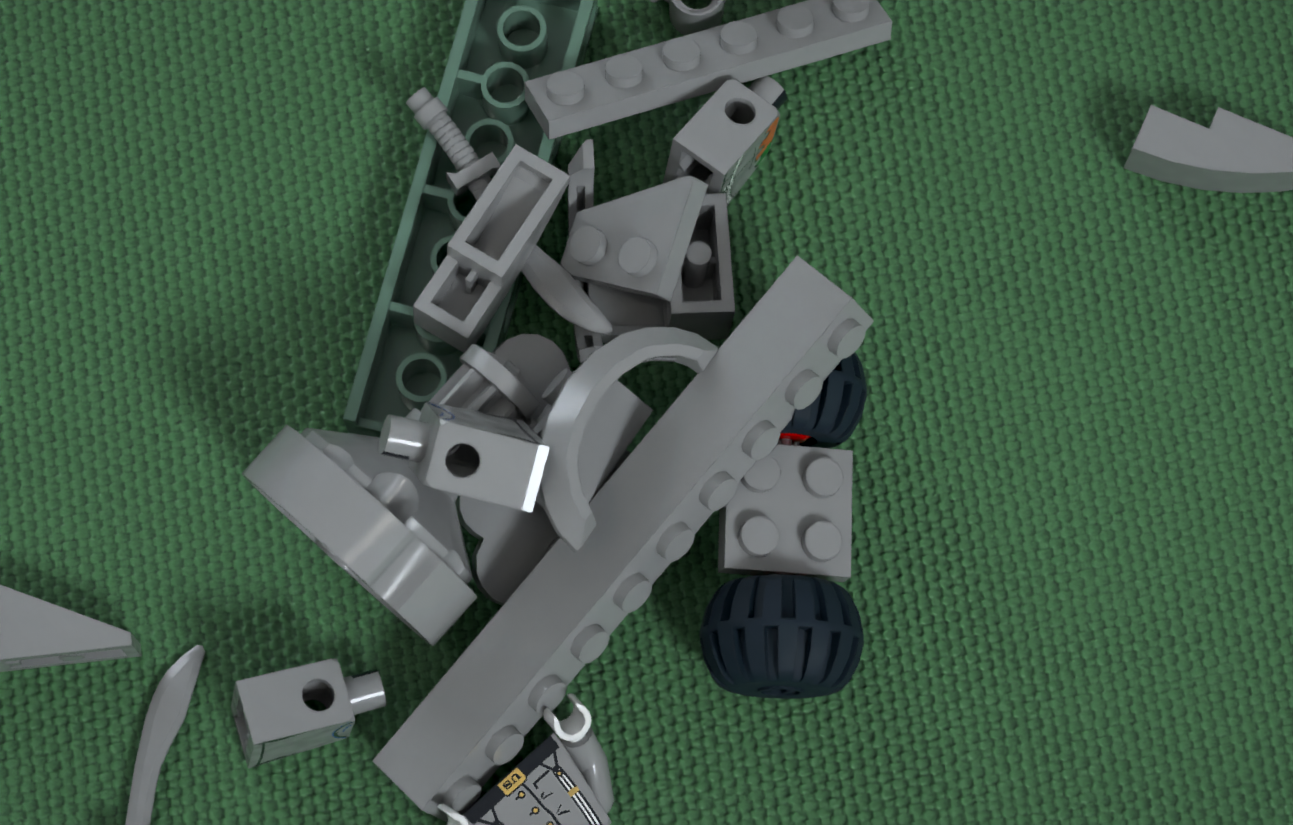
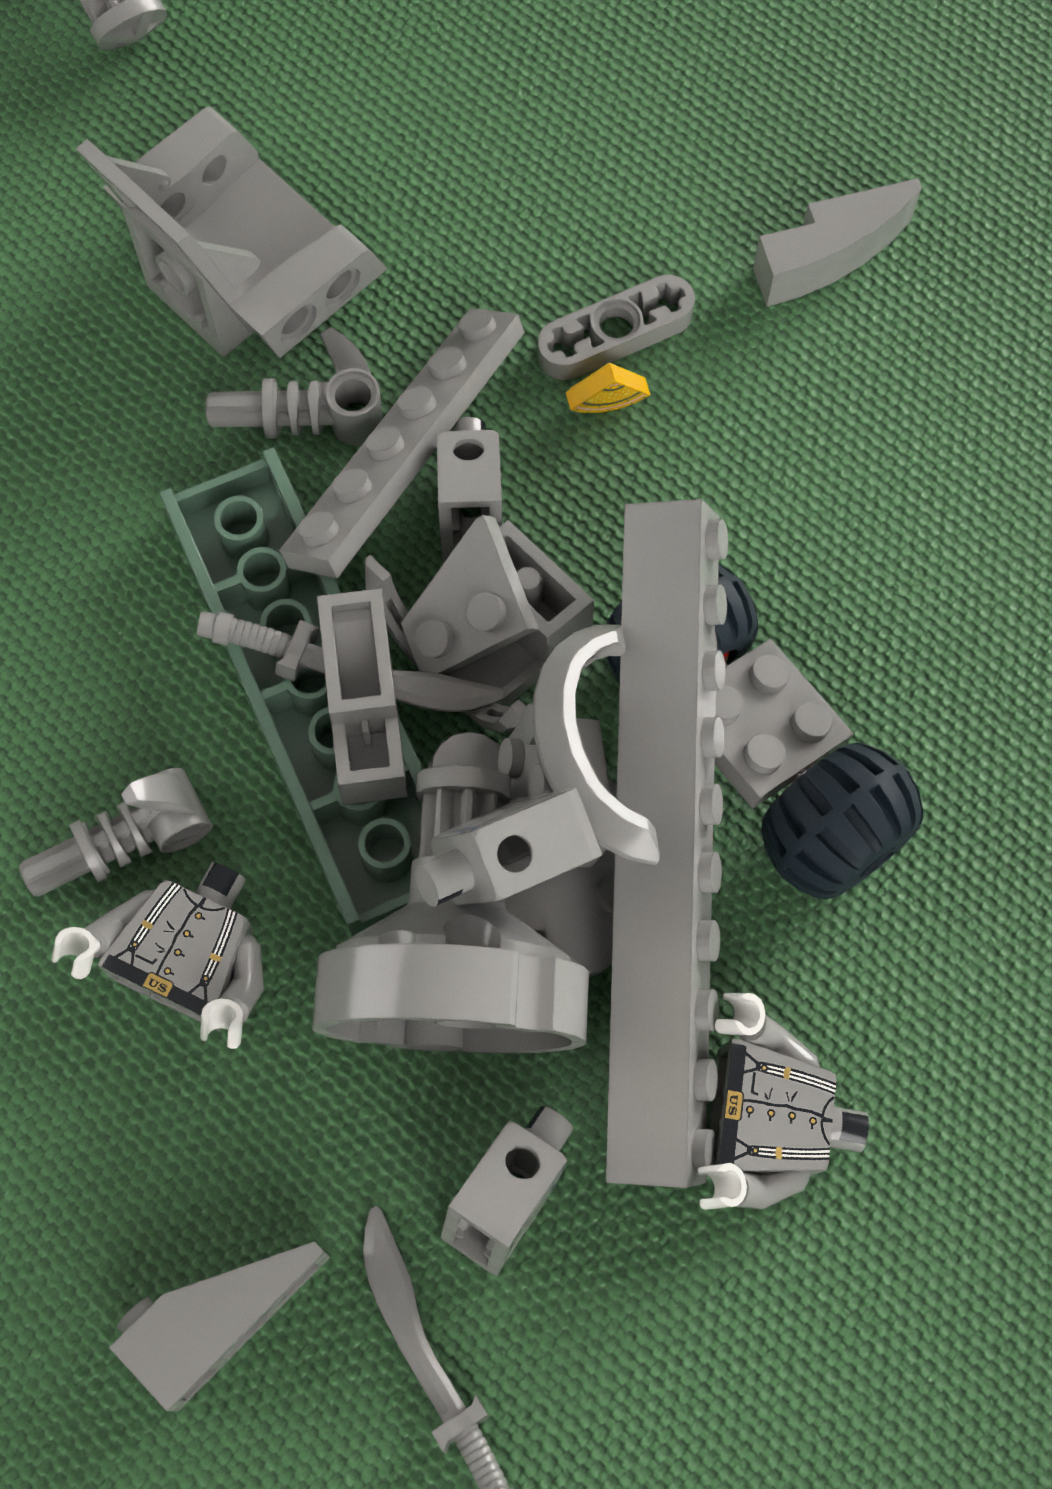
camera: 40 degrees left, 5 degrees down
(207, 340) = (178, 951): none -> light grey torso
(279, 217) = (163, 812): none -> light grey piece
(918, 141) = (607, 390): none -> yellow tile
(995, 75) = (626, 305): none -> light grey beam

